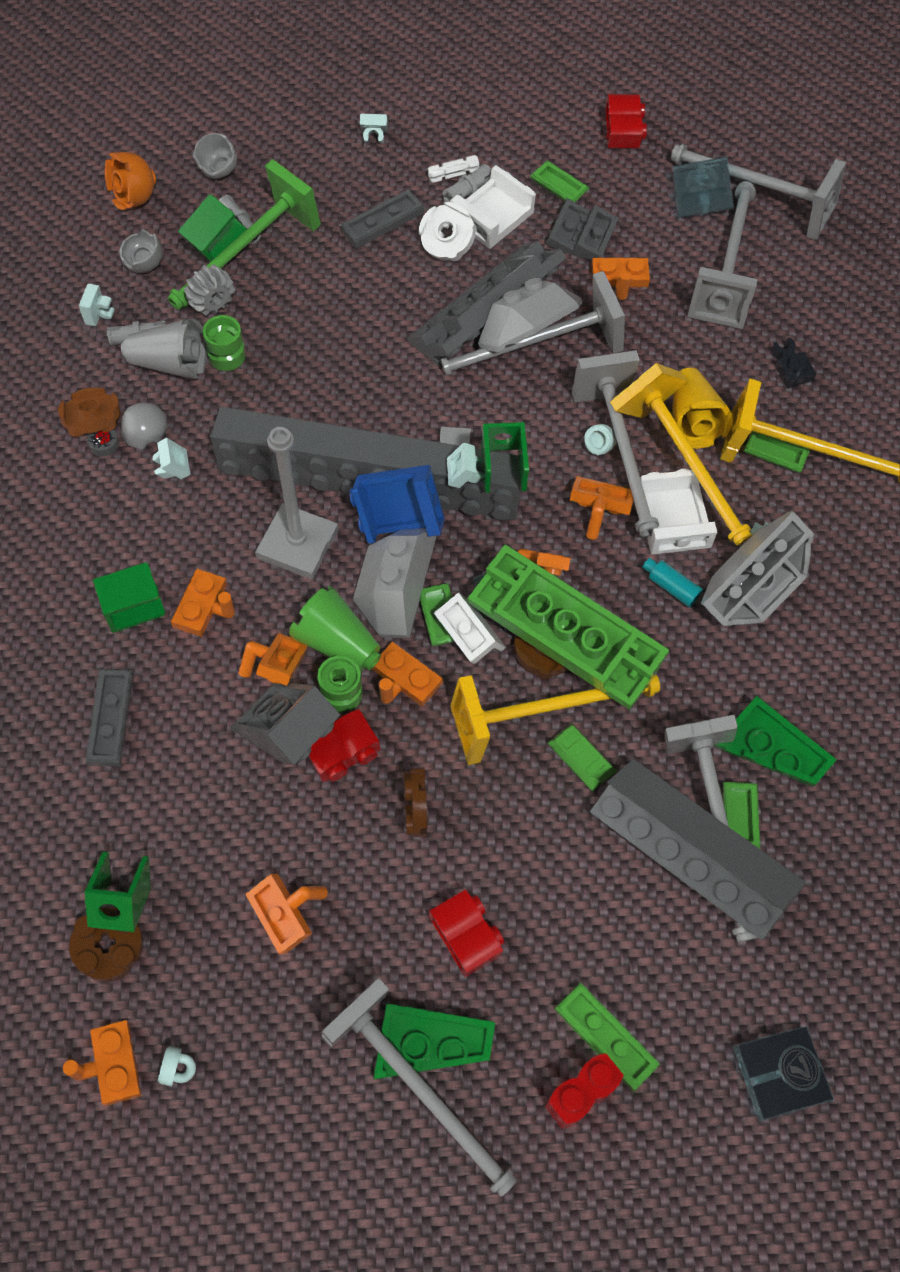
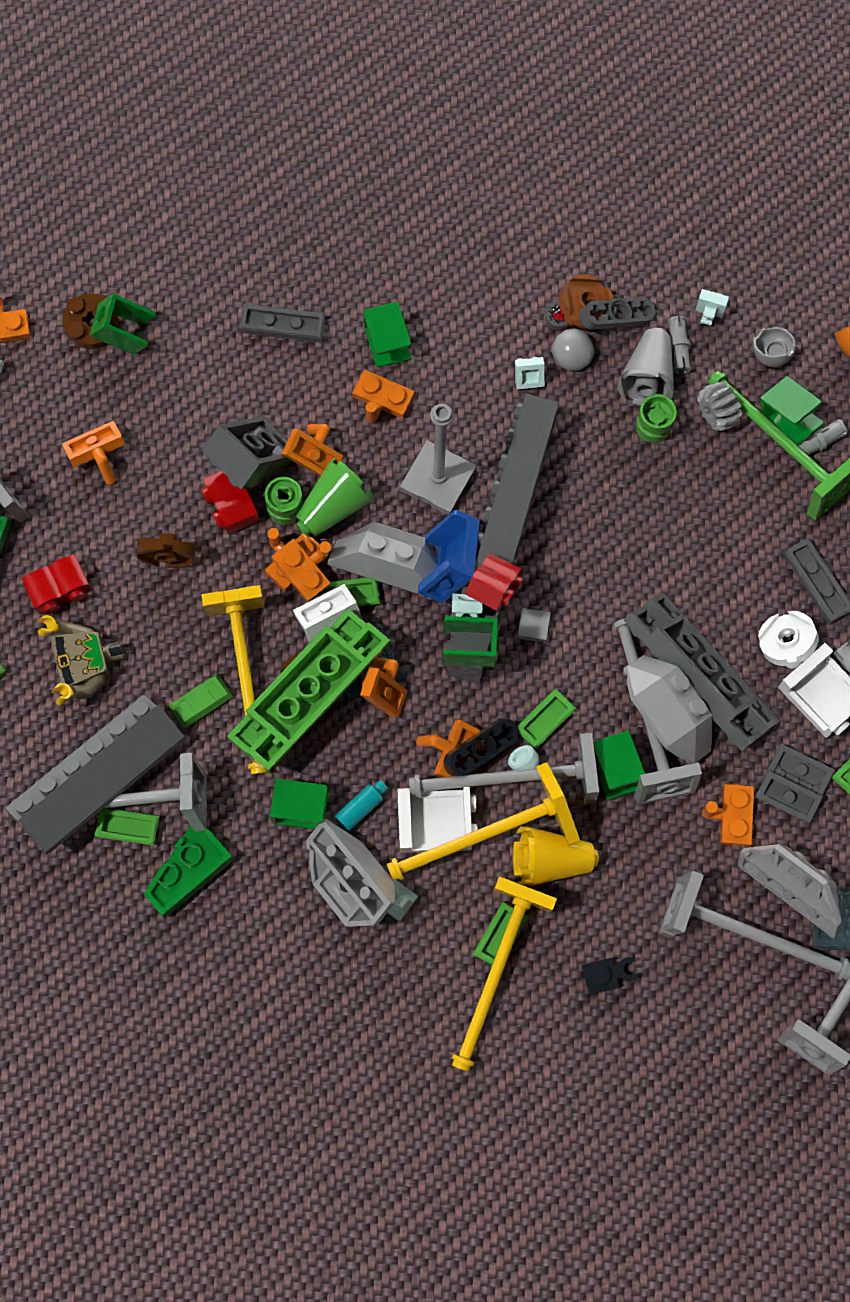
camera: 95 degrees right, 10 degrees up
(104, 381) = (608, 320): none -> dark grey beam
(419, 657) = (303, 569): none -> orange plate
(439, 435) = (494, 582): none -> red brick
(552, 426) = (545, 718): none -> bright green tile
(559, 889) = (79, 658): none -> torso
(592, 343) = (617, 765): none -> green piece
(596, 473) = (493, 747): none -> black beam
(685, 211) = (796, 883): none -> light grey wedge
(687, 635) = (298, 804): none -> green piece

